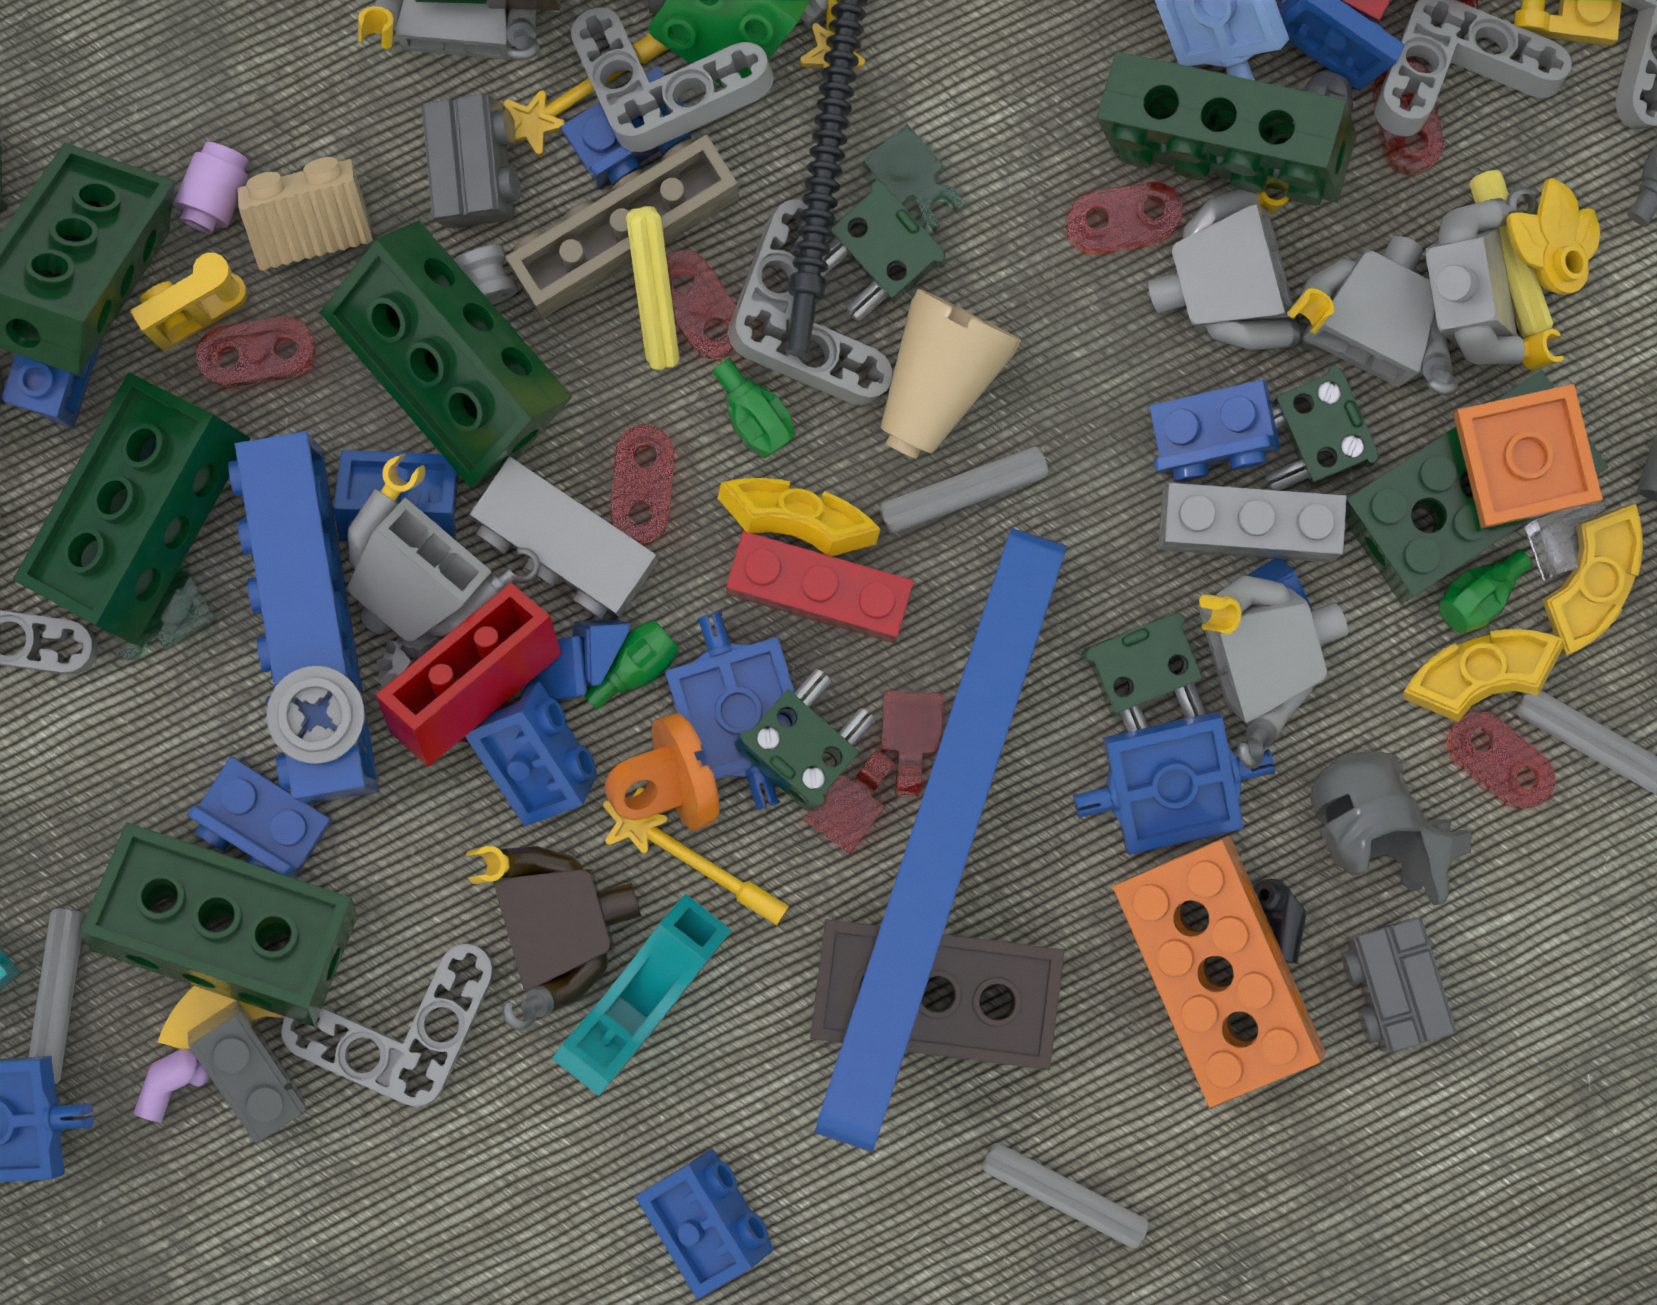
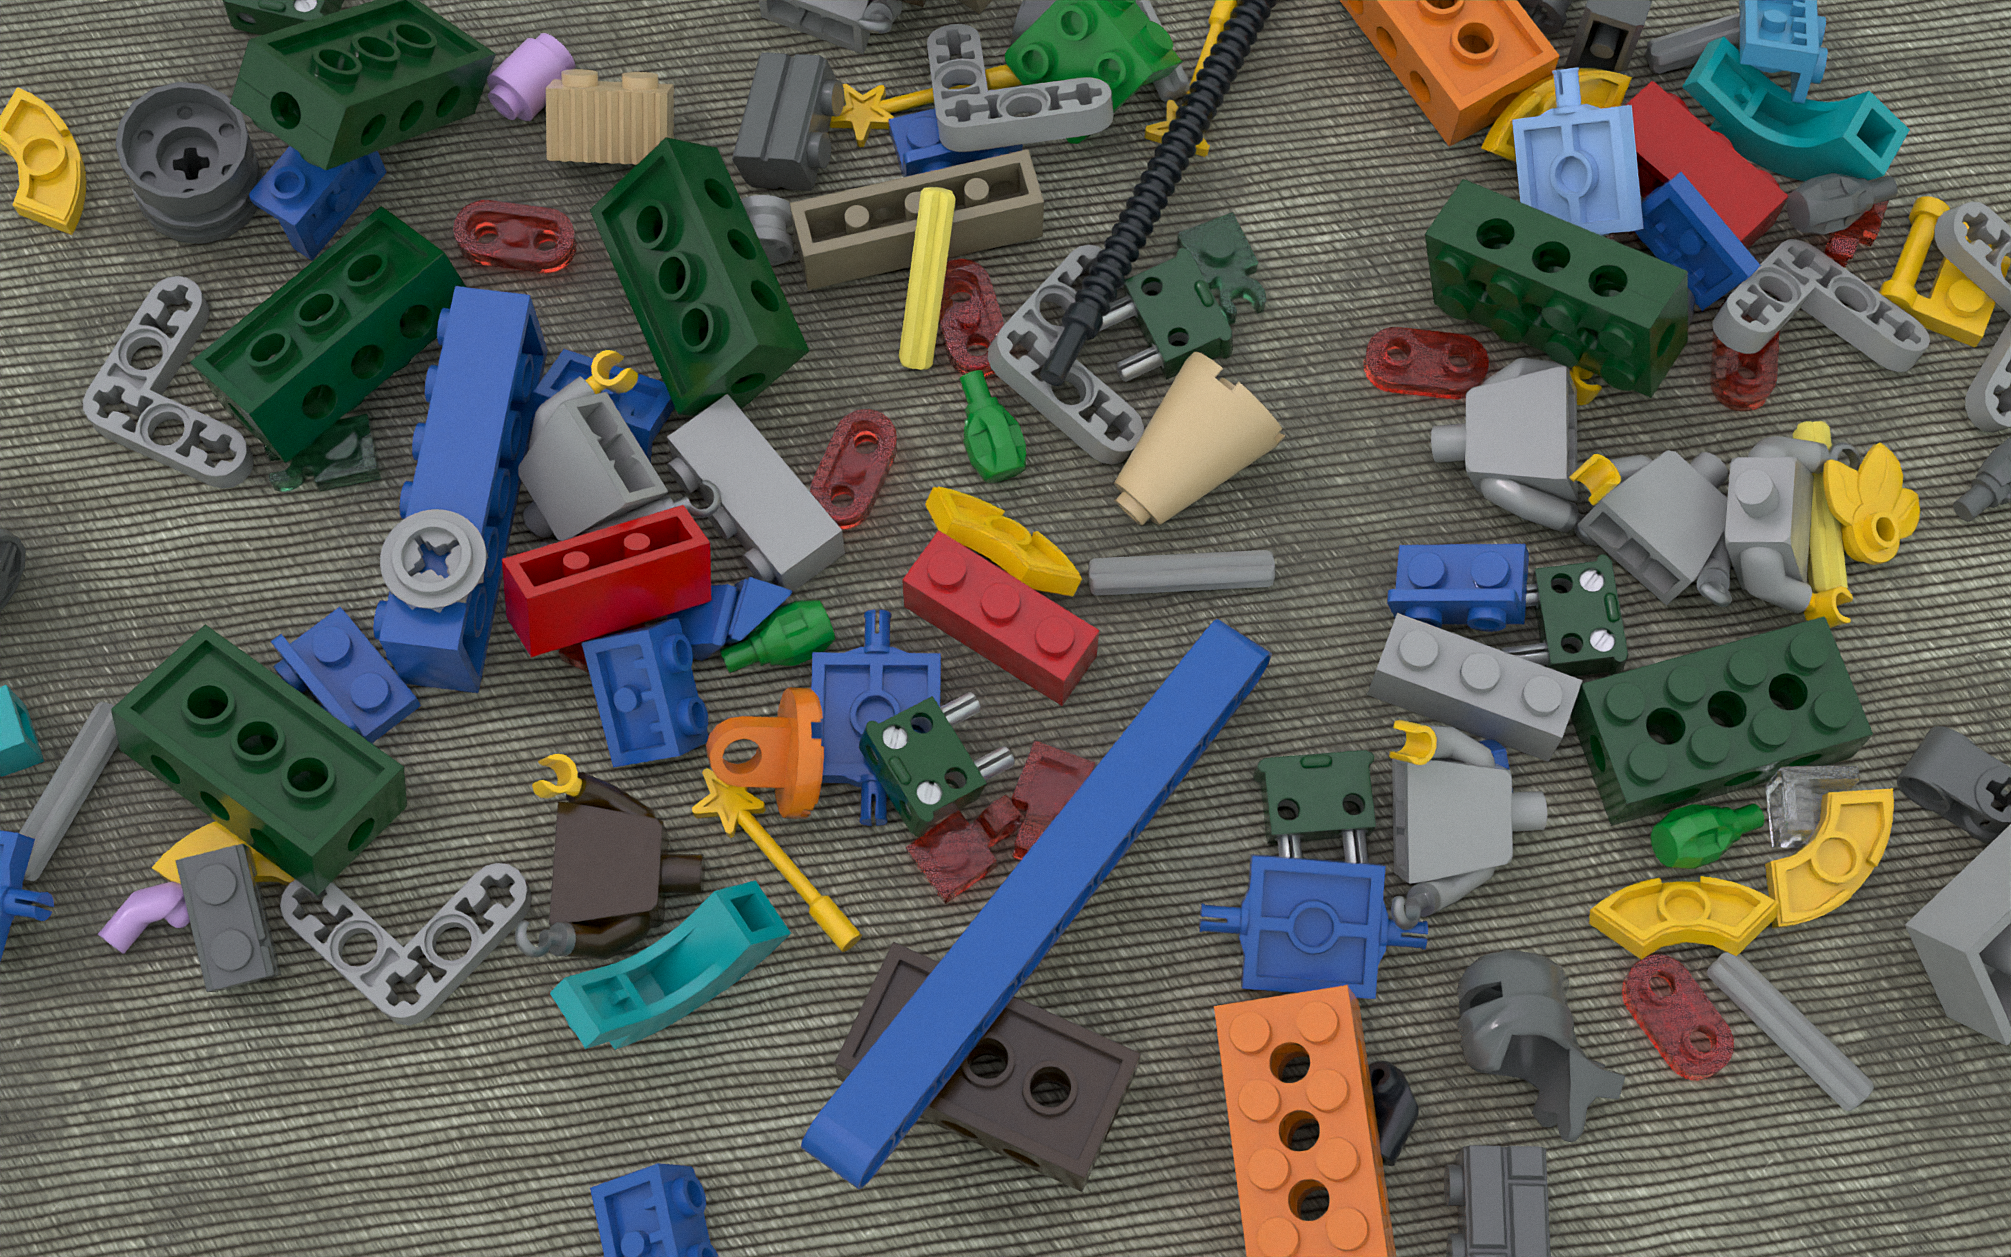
camera: 20 degrees right, 15 degrees down
(183, 309) = (446, 168): yellow plate -> none
(1527, 456) = (1788, 688): orange plate -> none

